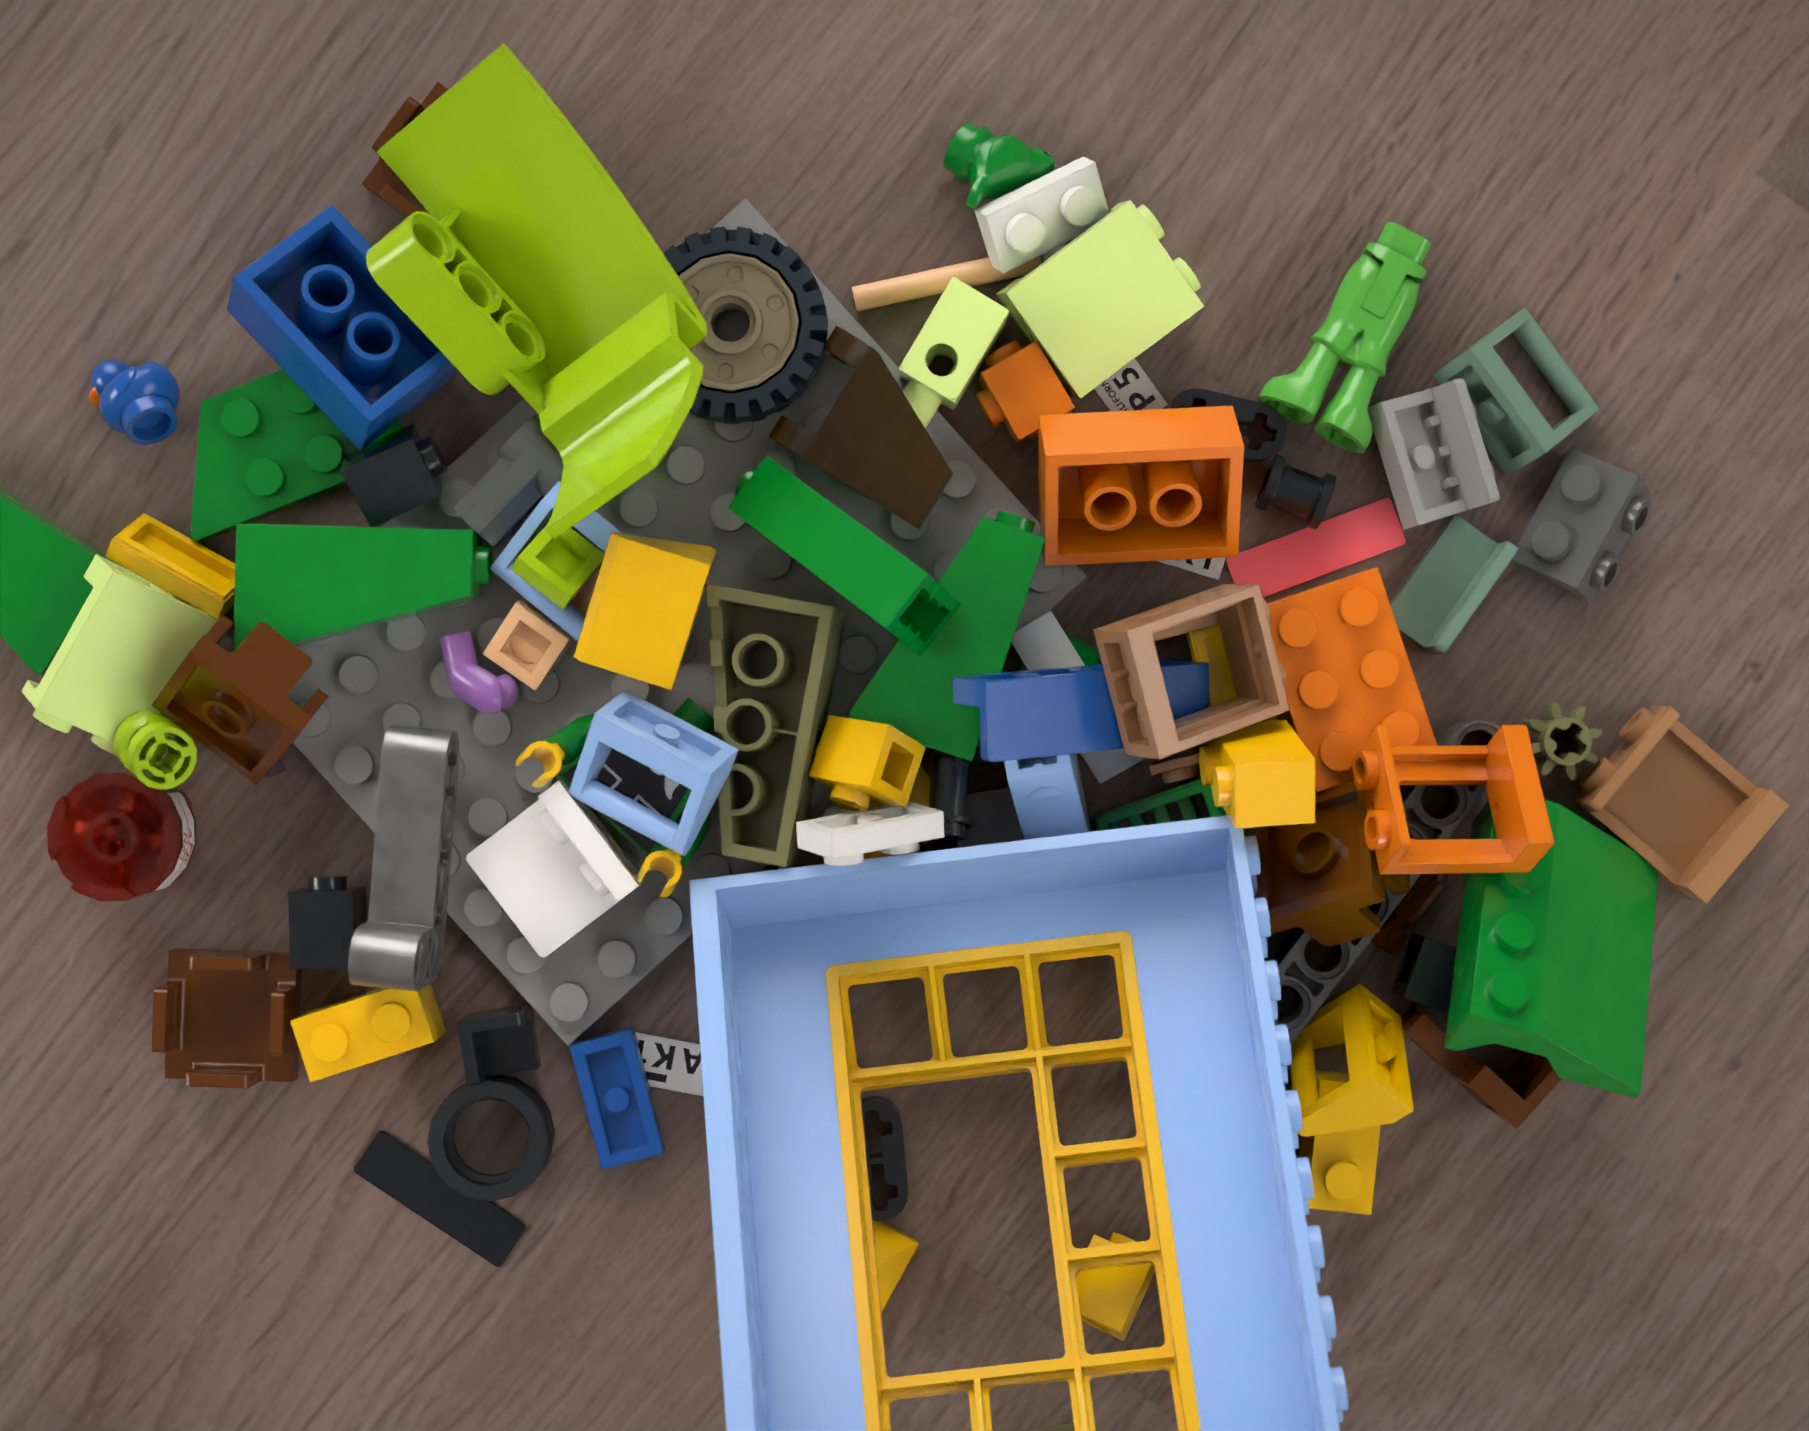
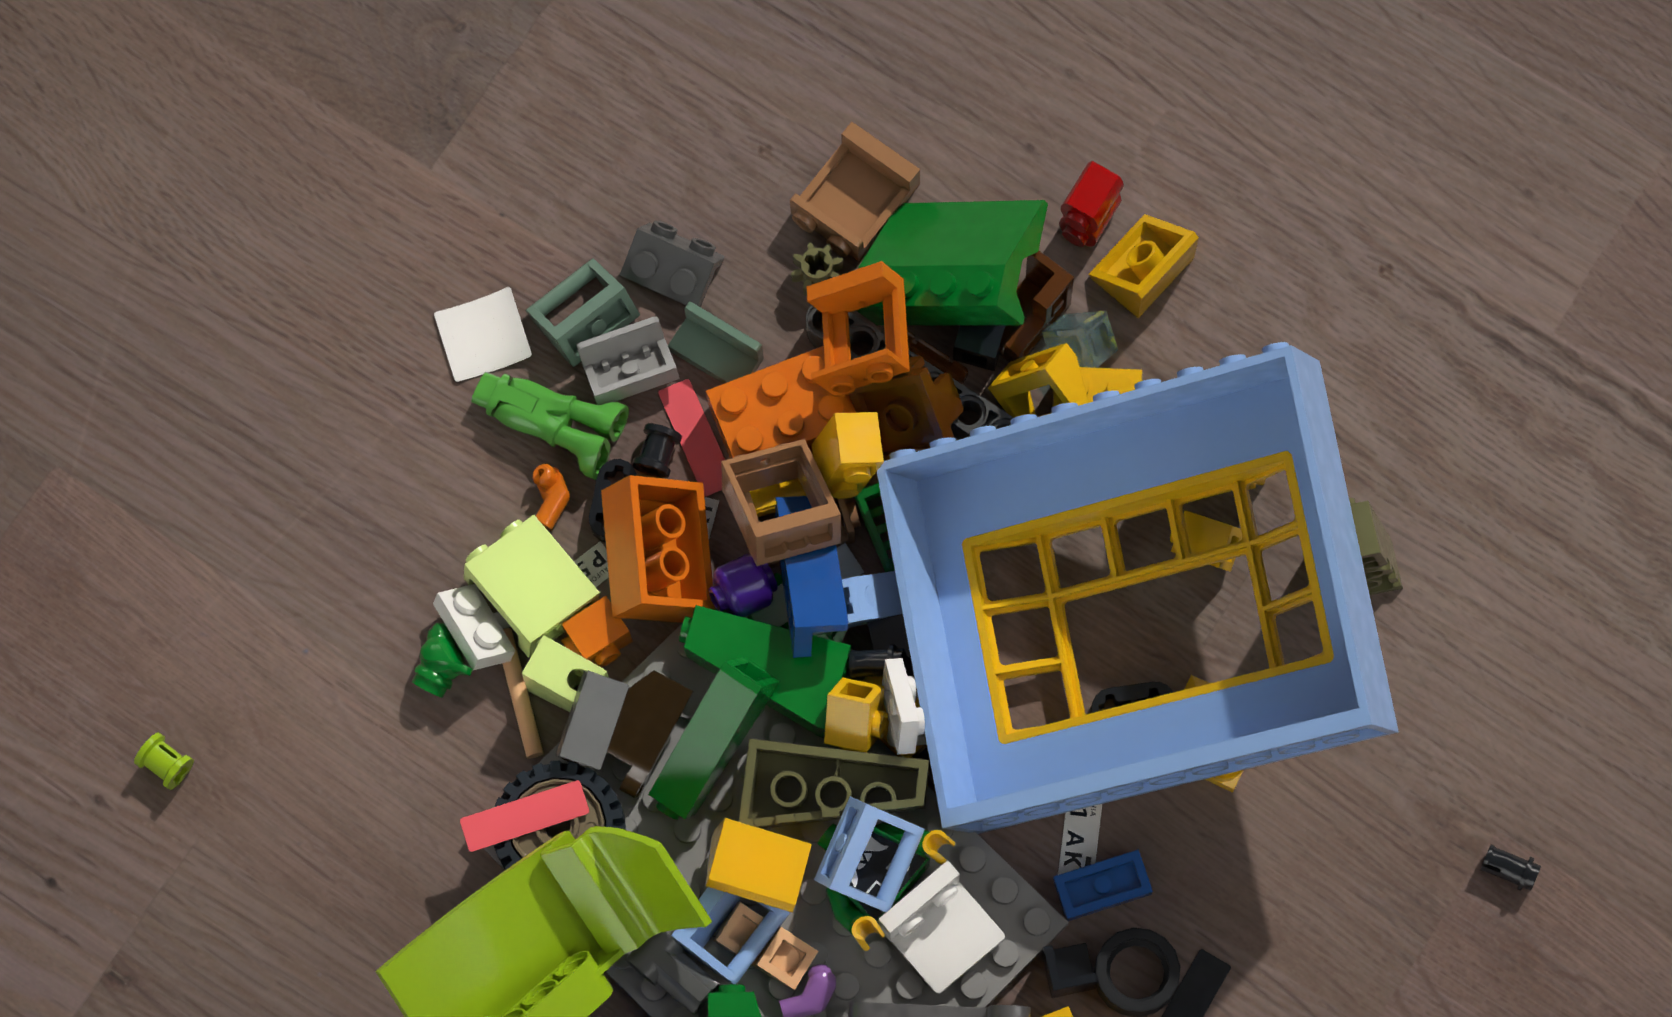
camera: 90 degrees left, 15 degrees down
(558, 566) = (729, 930): lime tile -> none
(745, 275) = (524, 816): none -> coral sticker
(879, 378) = (592, 720): none -> dark grey tile
(1070, 606) = (742, 587): none -> dark purple head
(1241, 339) = (553, 492): none -> orange arm
(1438, 1128) = (1086, 334): none -> clear light blue panel
(1490, 243) = (483, 335): none -> white sticker
(1544, 1224) = (1145, 262): none -> yellow slope
(1635, 1155) = (1090, 205): none -> red brick

